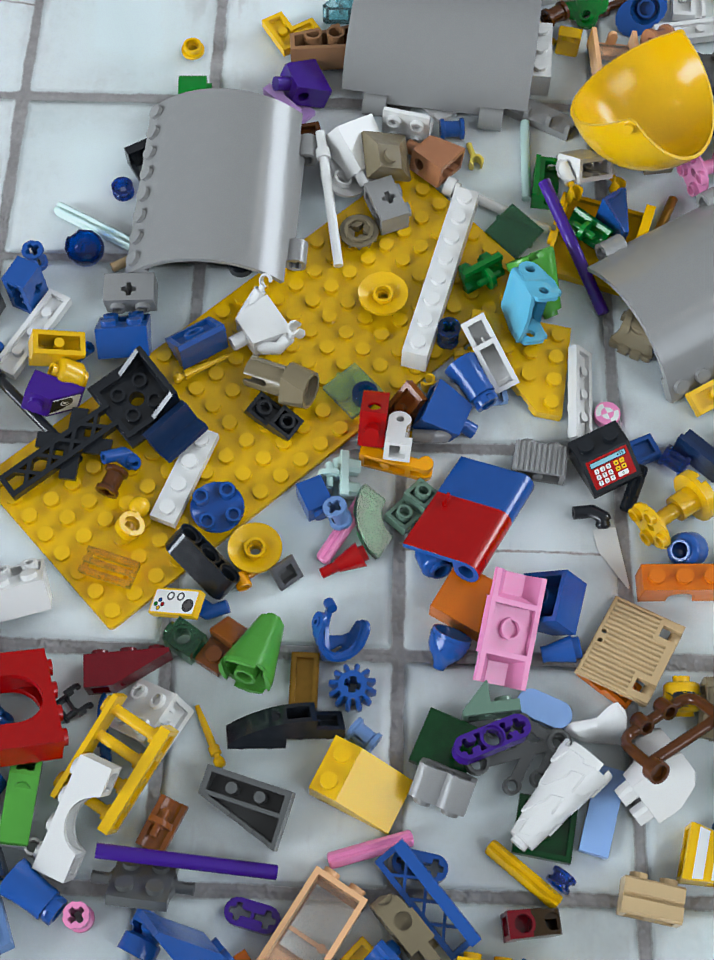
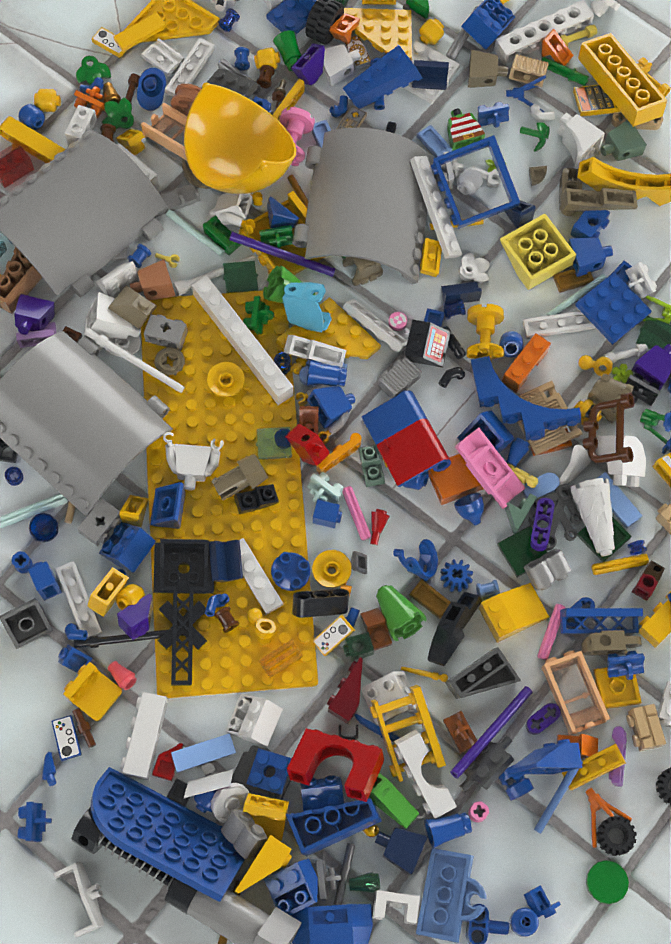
camera: 55 degrees left, 5 degrees up
(169, 314) = (134, 510): none -> yellow slope
(189, 373) = (186, 526): yellow piece -> none
(336, 510) = (343, 507): medium blue bush -> none
(369, 521) = (364, 494): clear green tile -> none
(397, 440) = (334, 443): white leg -> none
(536, 677) = (524, 477): none -> light yellow axle
(606, 603) = (513, 408): none -> blue arch

